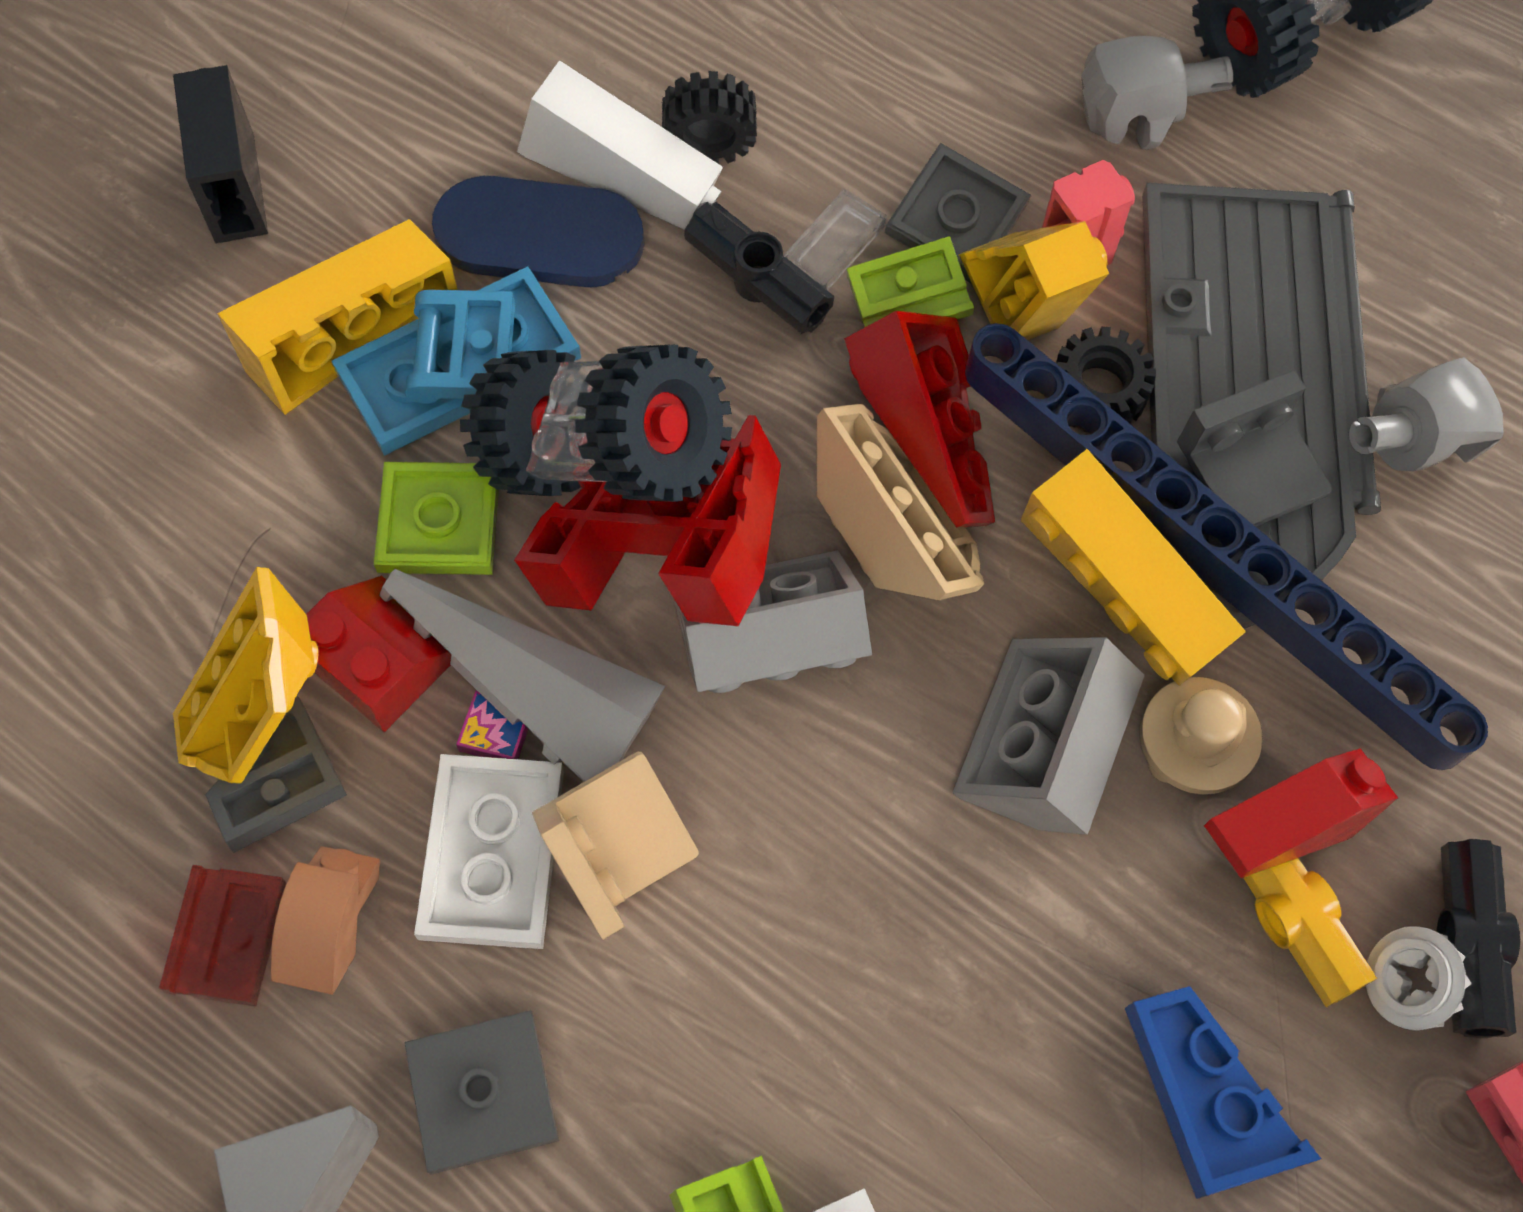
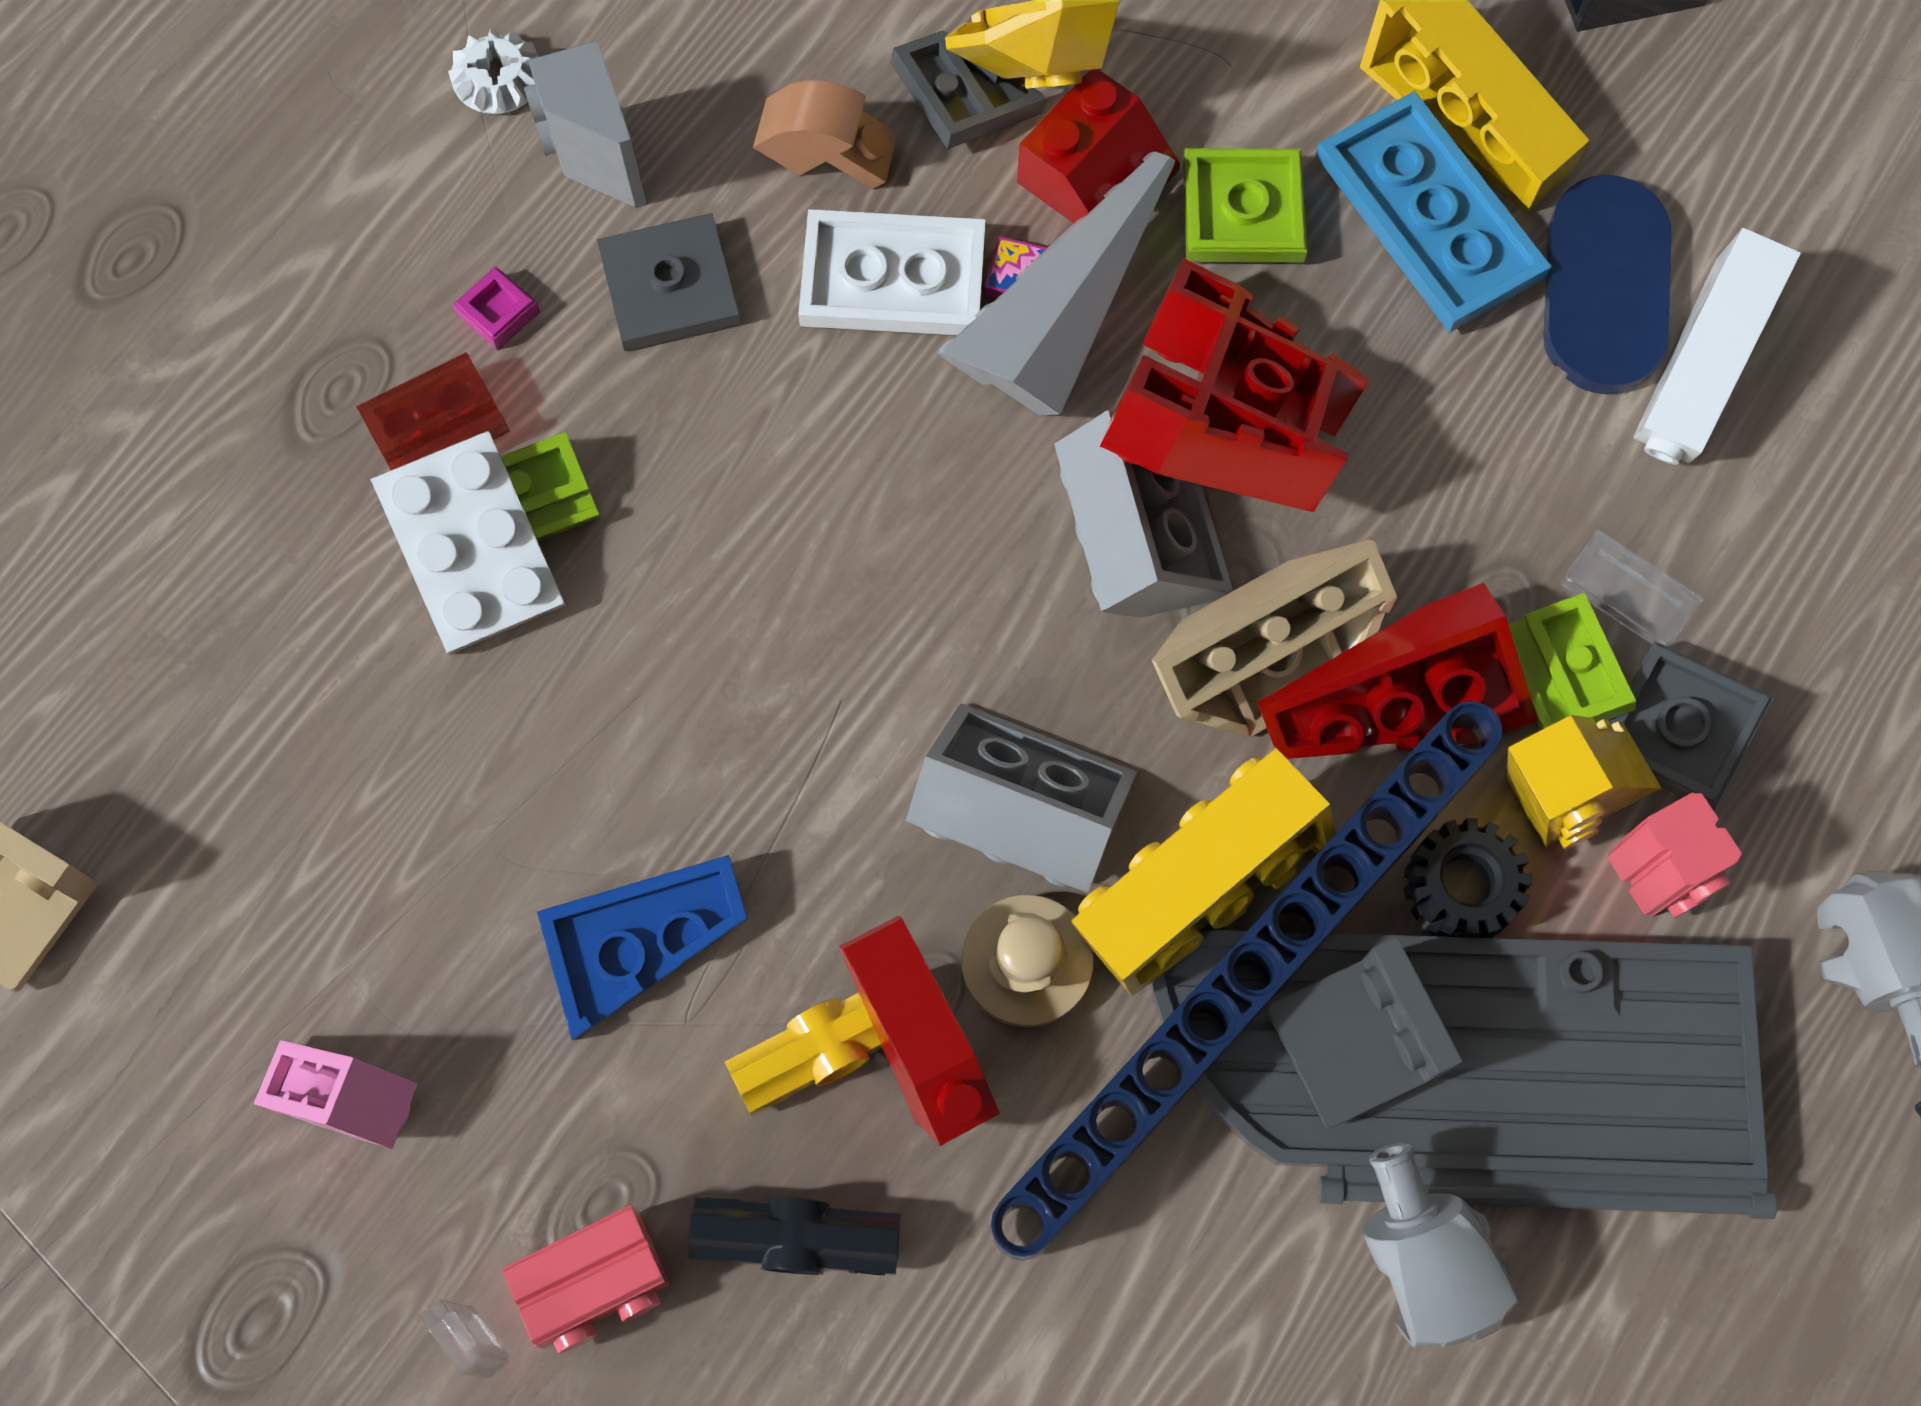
camera: 90 degrees right, 5 degrees up
(223, 936) = (810, 50): clear red plate -> none
(479, 333) = (1437, 215): dark azure plate -> none
(614, 837) = (890, 361): tan bracket -> none
(631, 420) = (1320, 303): black plate -> none
(712, 115) = (1770, 438): black tyre -> none
(778, 285) = (1560, 525): black piece -> none
(1390, 991) = (748, 1138): white gear -> none

